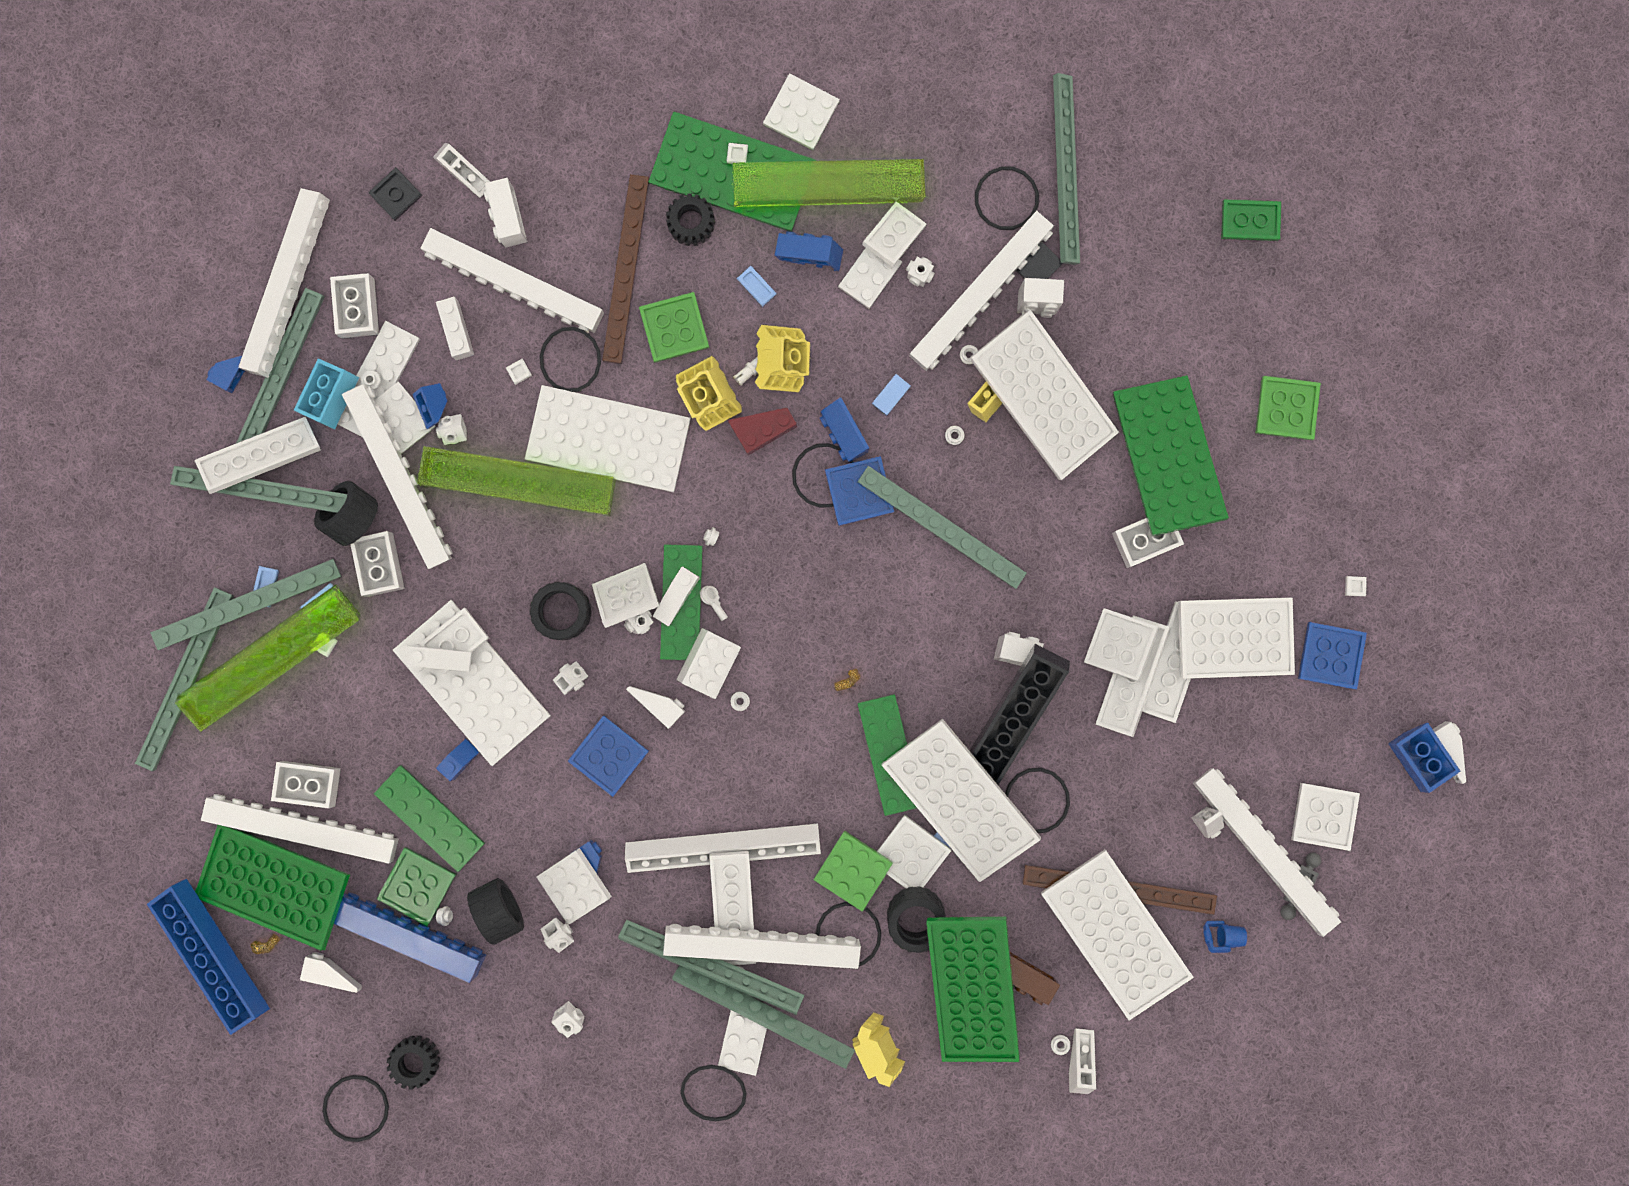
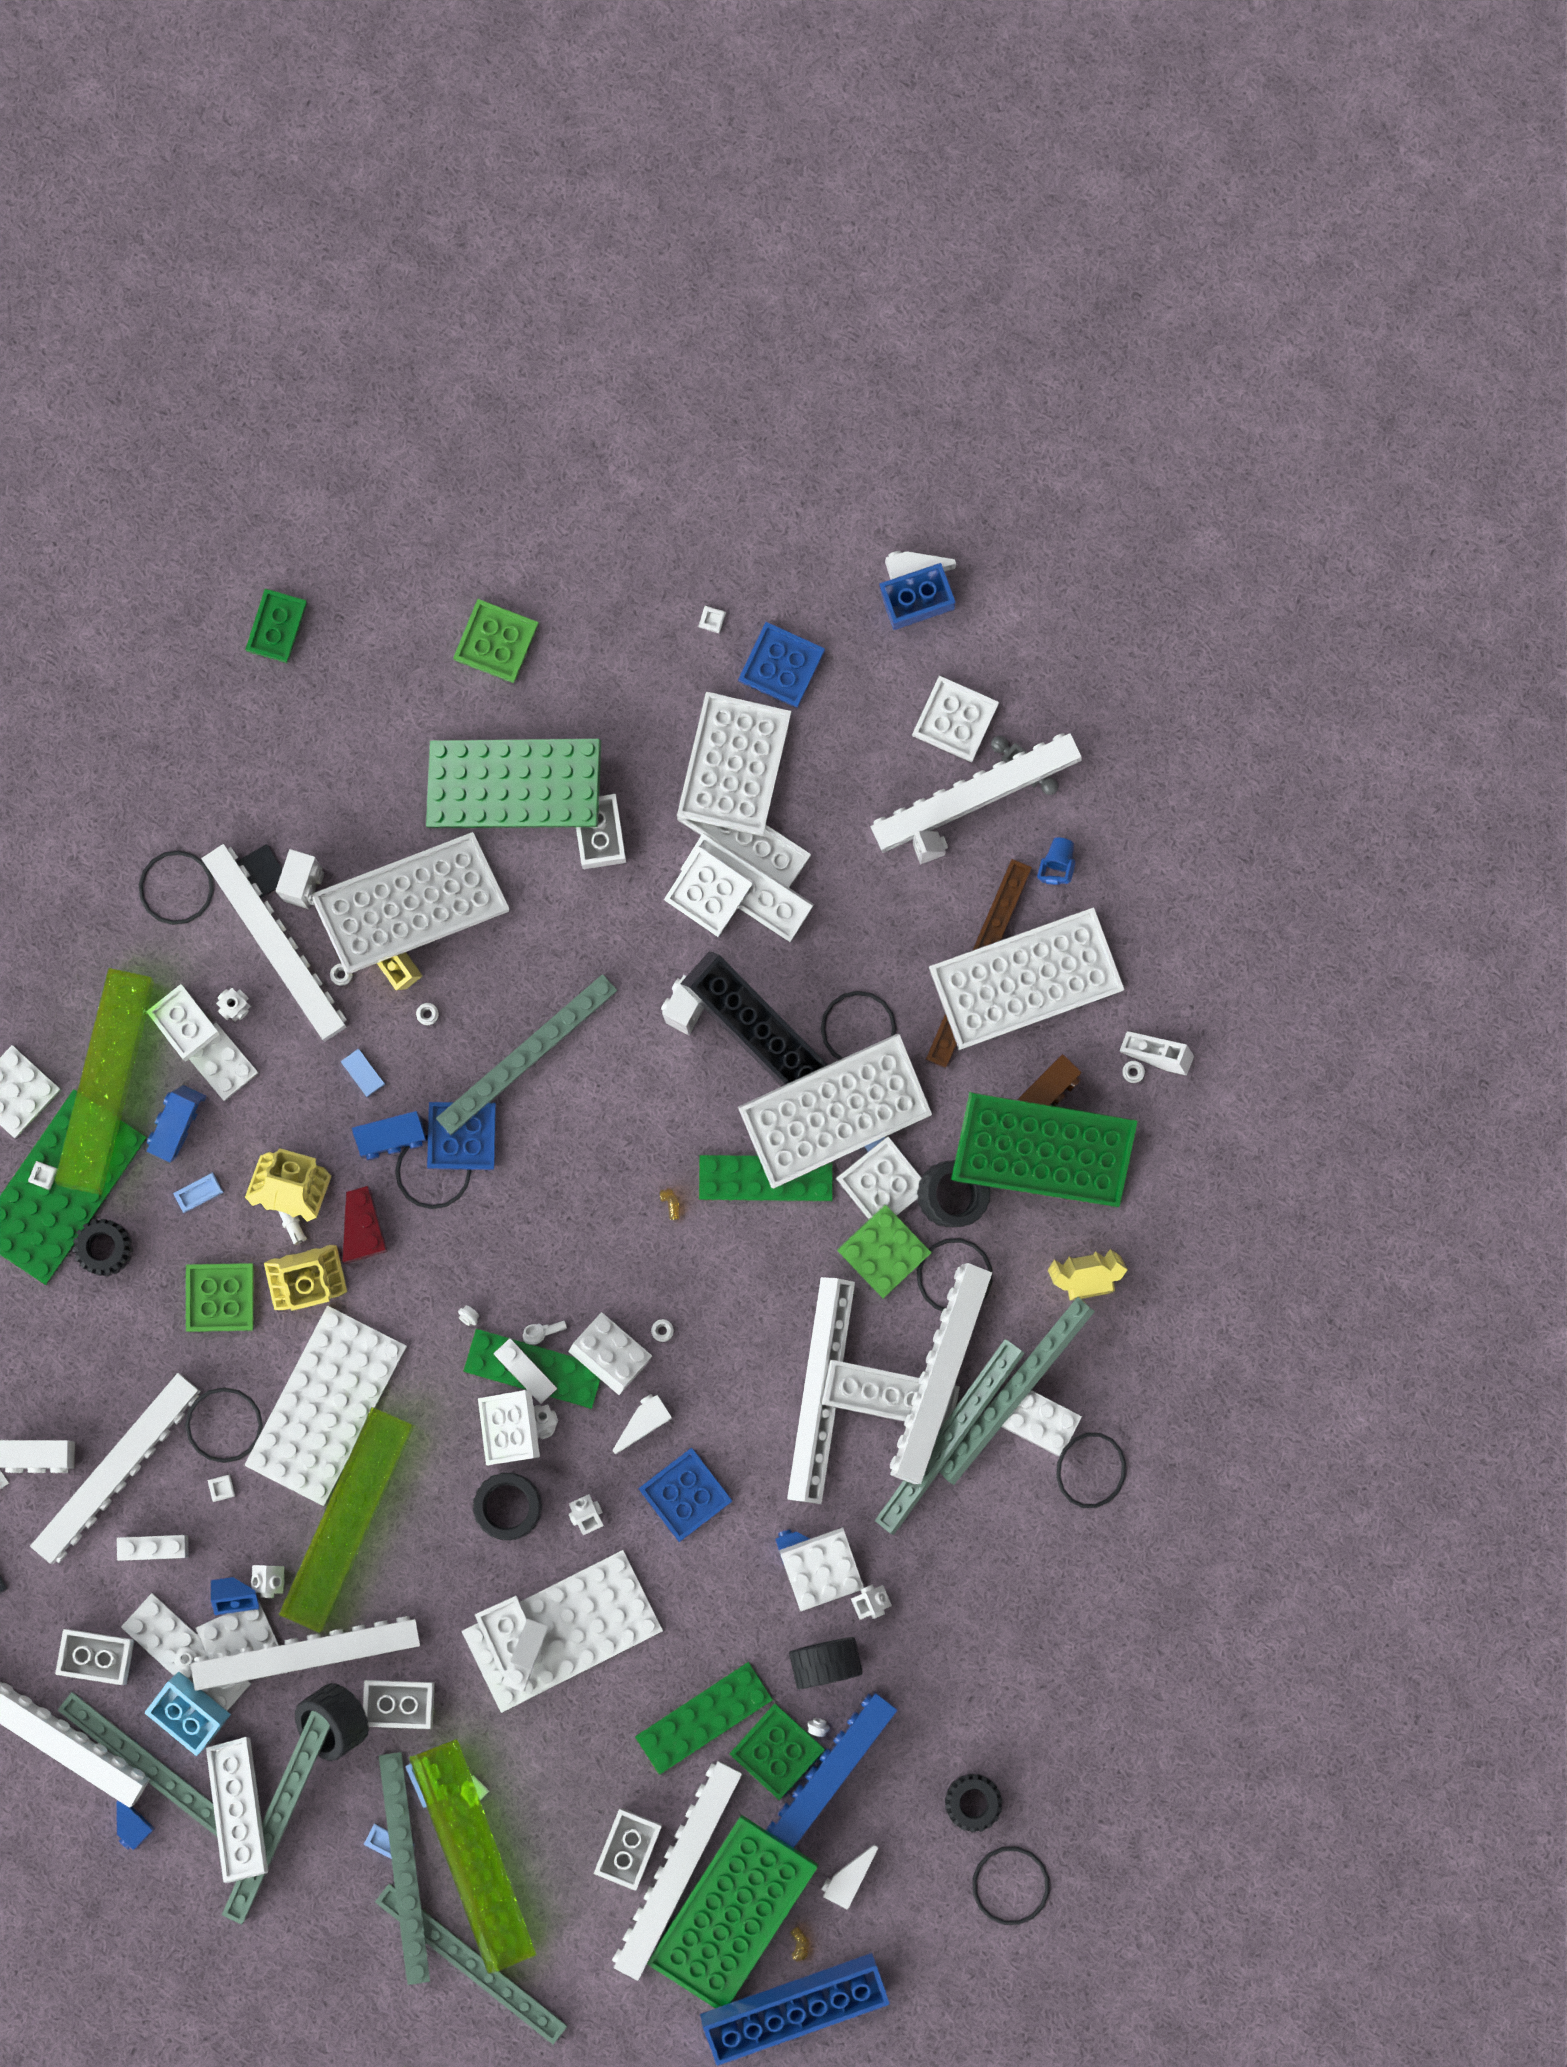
camera: 80 degrees left, 5 degrees down
(457, 760) = (645, 1667): blue slope -> none
(568, 1019) = (969, 1613): white brick -> none
(625, 269) = (137, 1336): reddish brown plate -> none
(1066, 169) = (162, 813): sand green plate -> none

